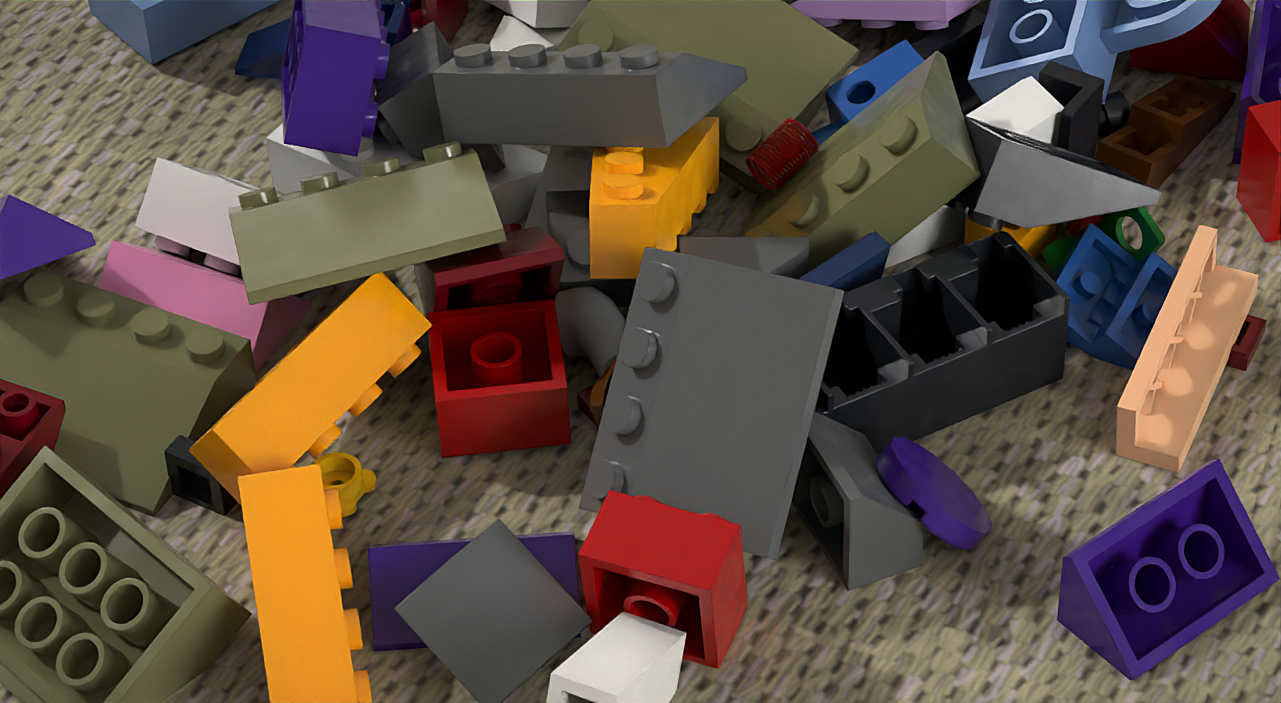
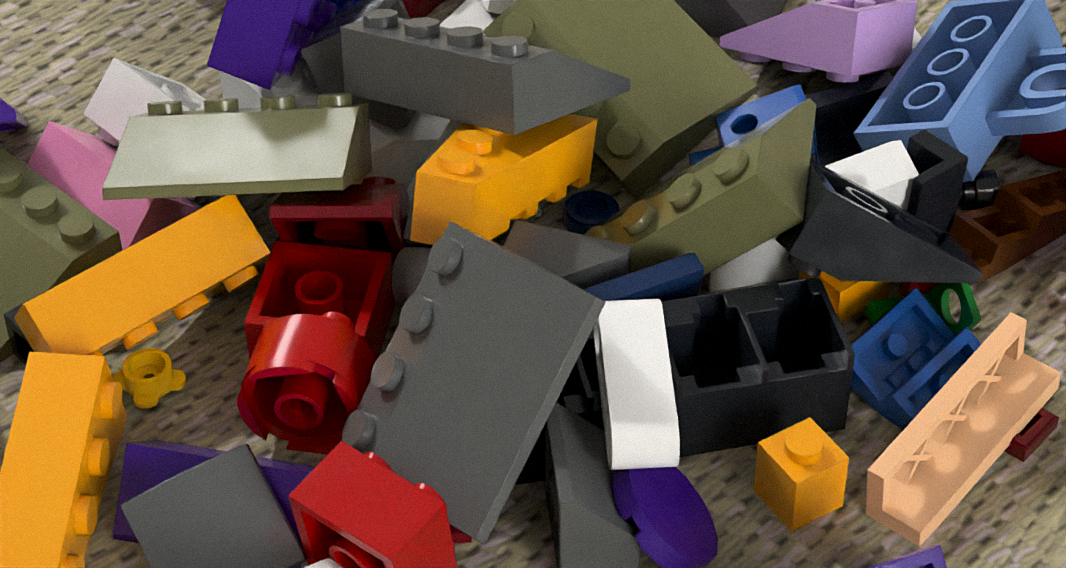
camera: 15 degrees right, 0 degrees up
(521, 447) = (305, 380): none -> red brick
(721, 217) = (588, 210): none -> dark blue tile
(782, 154) = (633, 166): red piece -> none
(883, 376) = (636, 385): none -> white beam
(1046, 428) = (800, 474): none -> light orange brick

